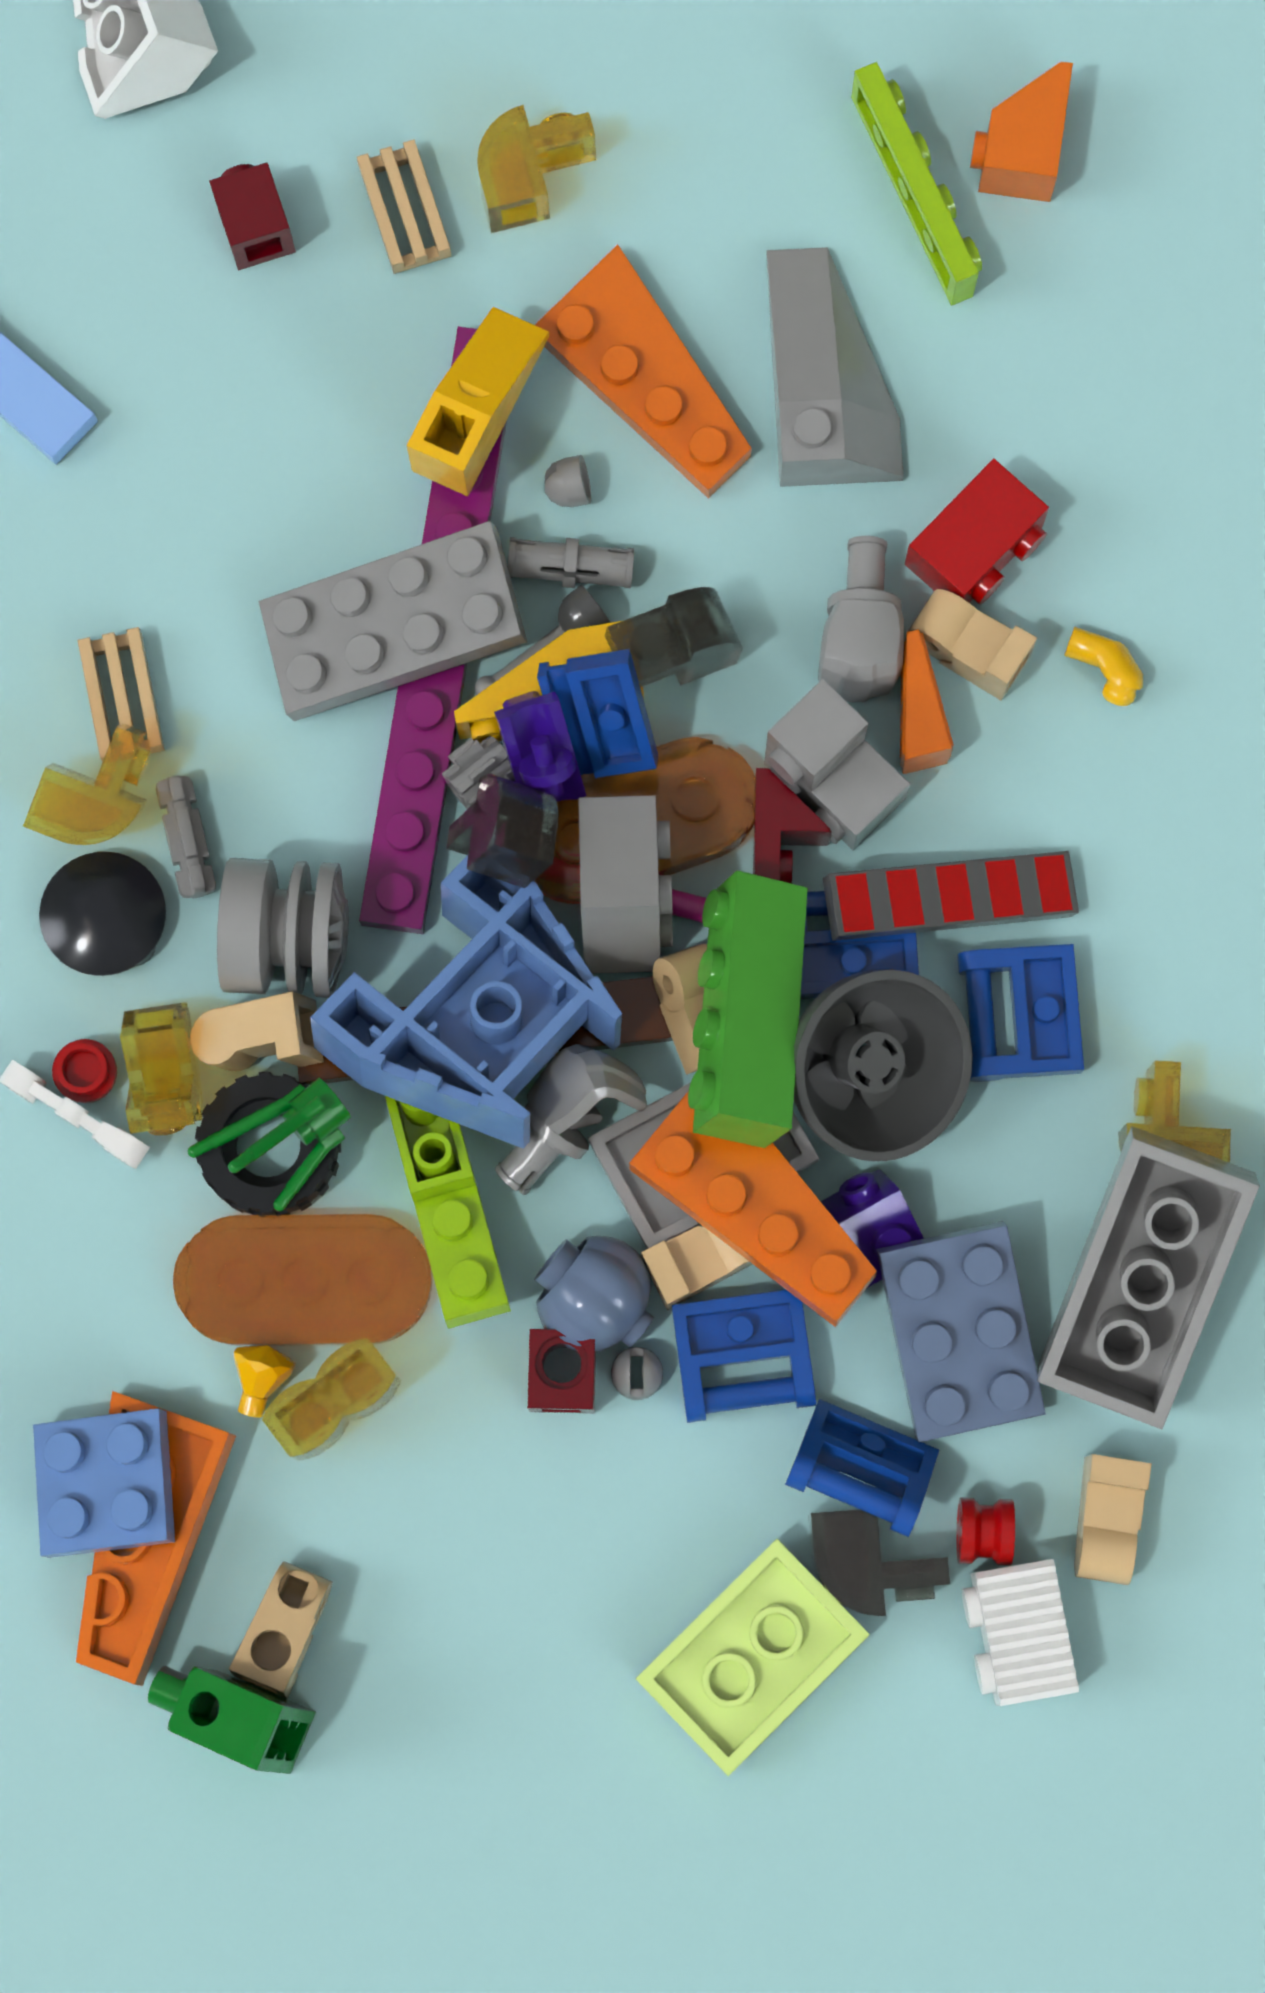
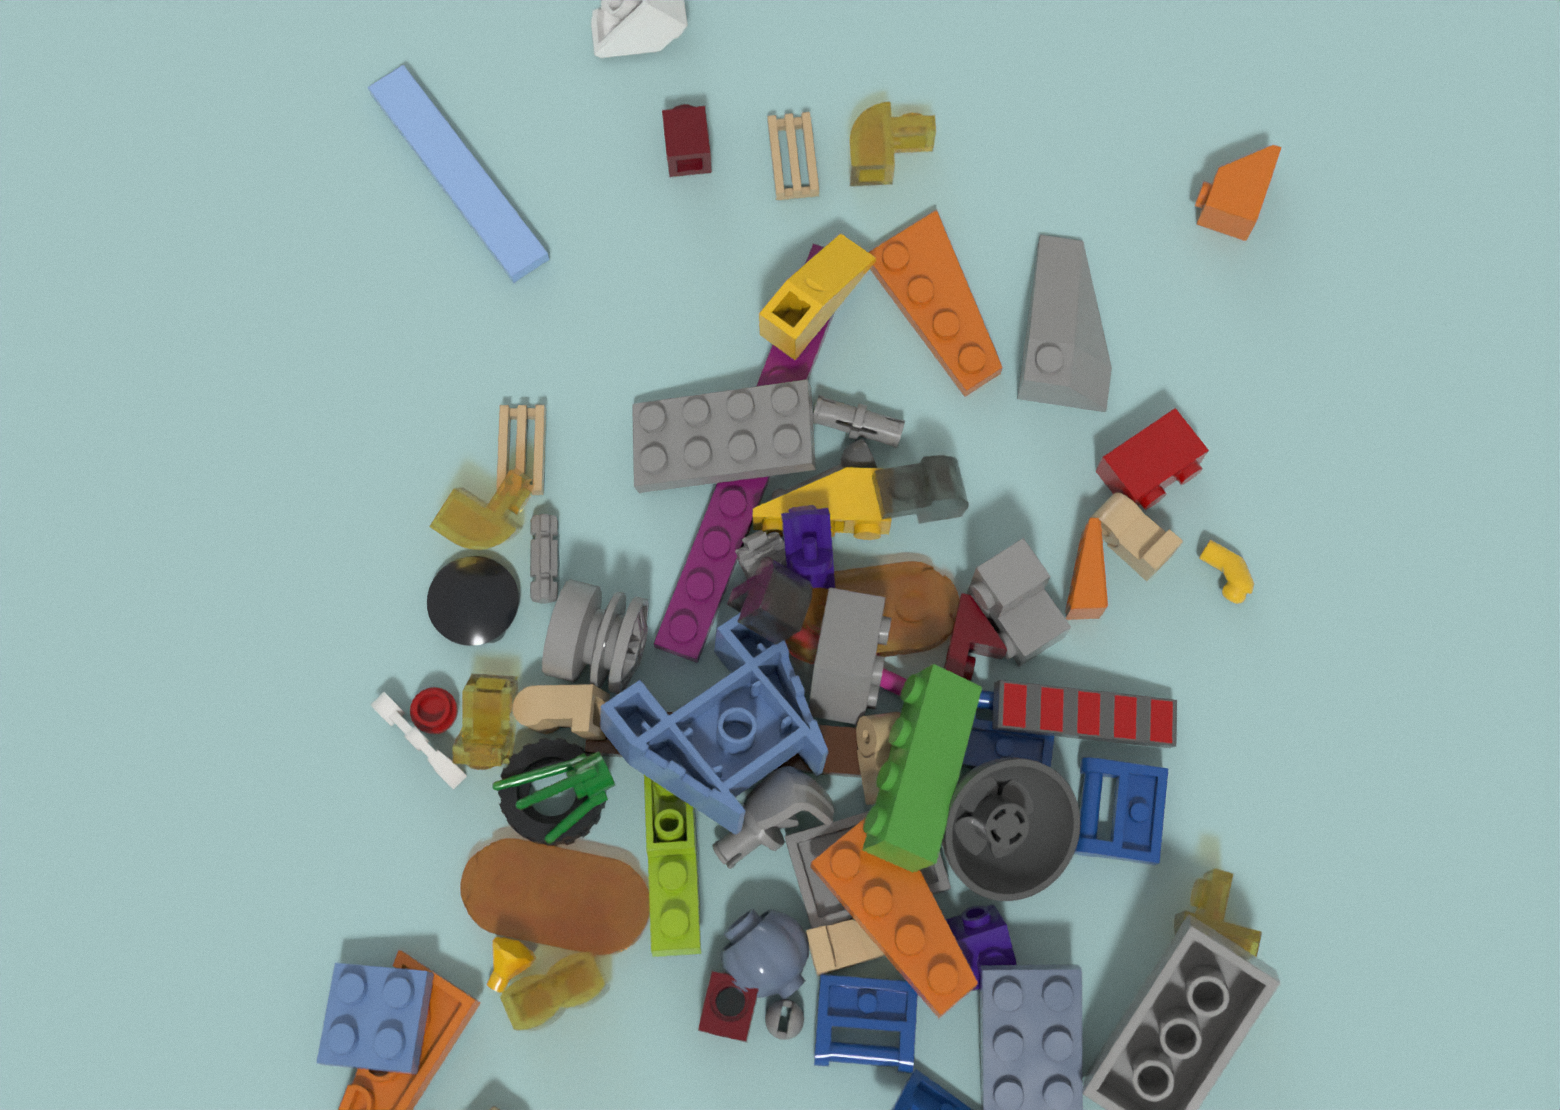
camera: 10 degrees right, 5 degrees down
(568, 482) = (868, 365): light grey hinge -> none
(603, 712) = (859, 530): blue plate -> none
(864, 628) = (1059, 509): light grey piece -> none
(907, 164) = (1150, 195): lime plate -> none

